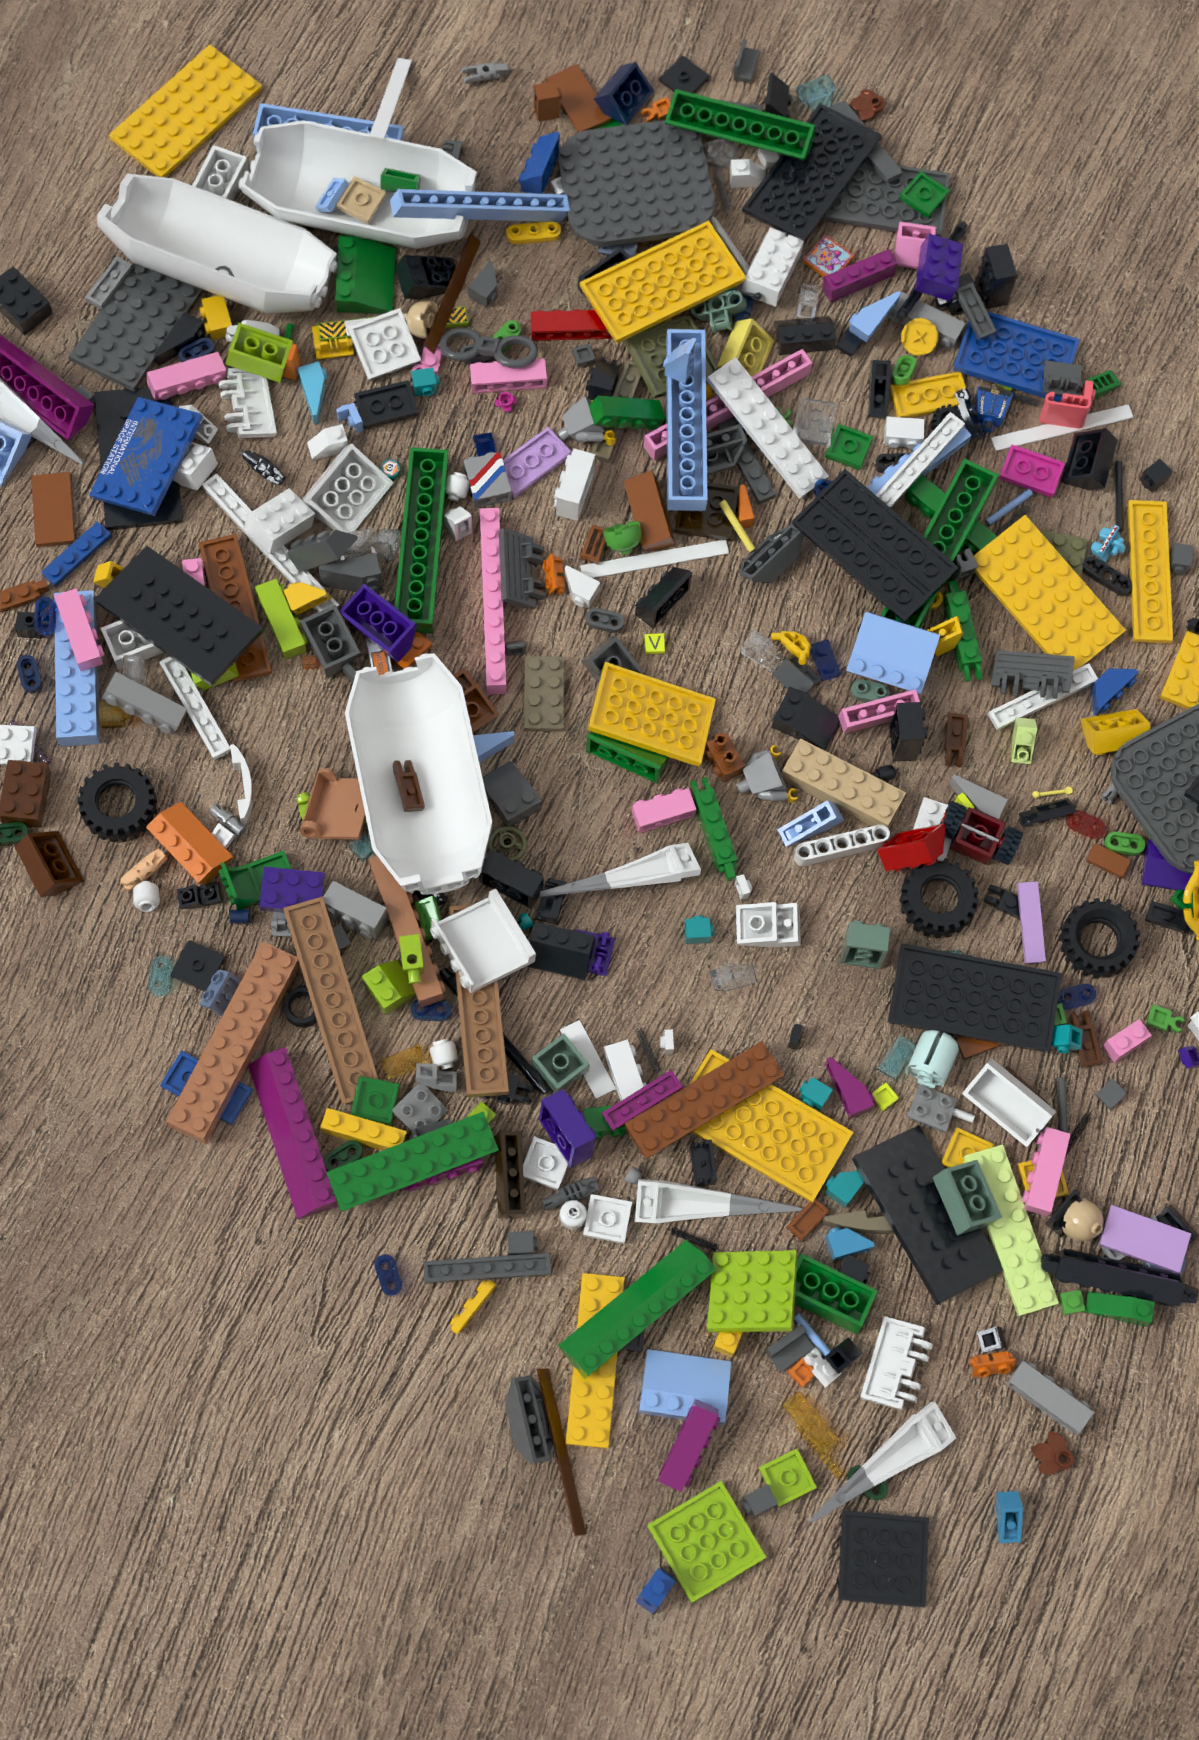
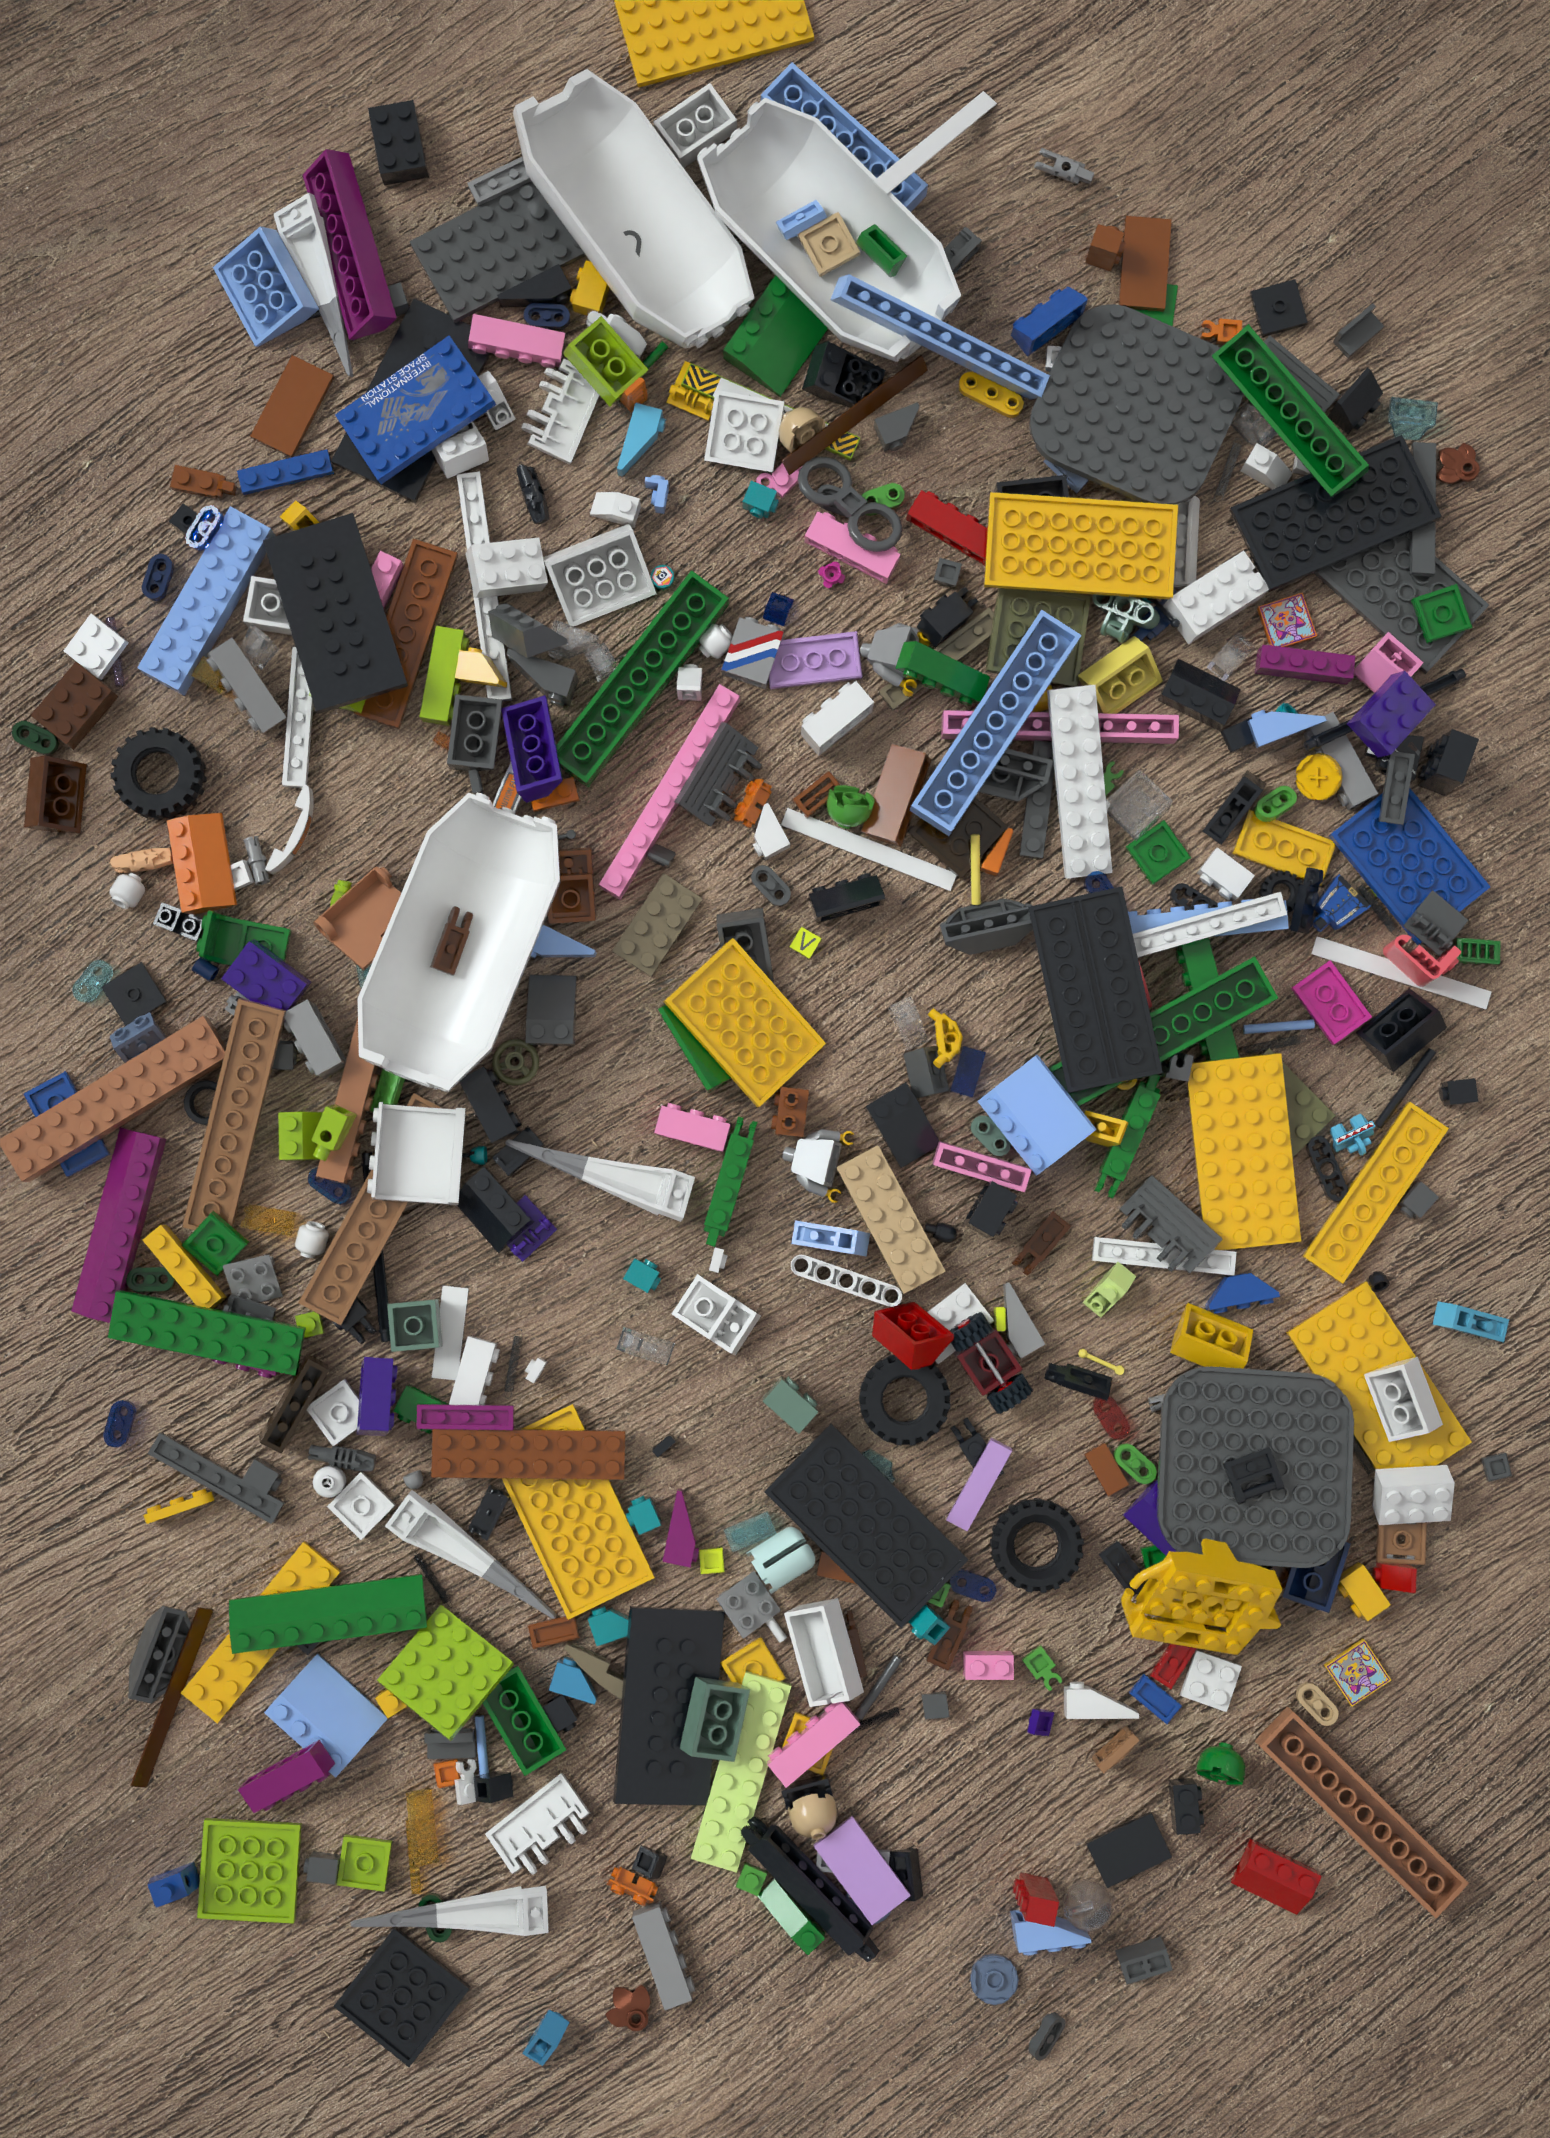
camera: 35 degrees right, 15 degrees up
(78, 629) = (225, 566): bright pink brick -> none
(386, 404) = (704, 500): black plate -> none
(429, 1076) = (286, 1260): light grey slope -> none
(624, 93) = (1197, 289): dark blue slope -> none
(681, 361) = (1023, 661): light blue slope -> none

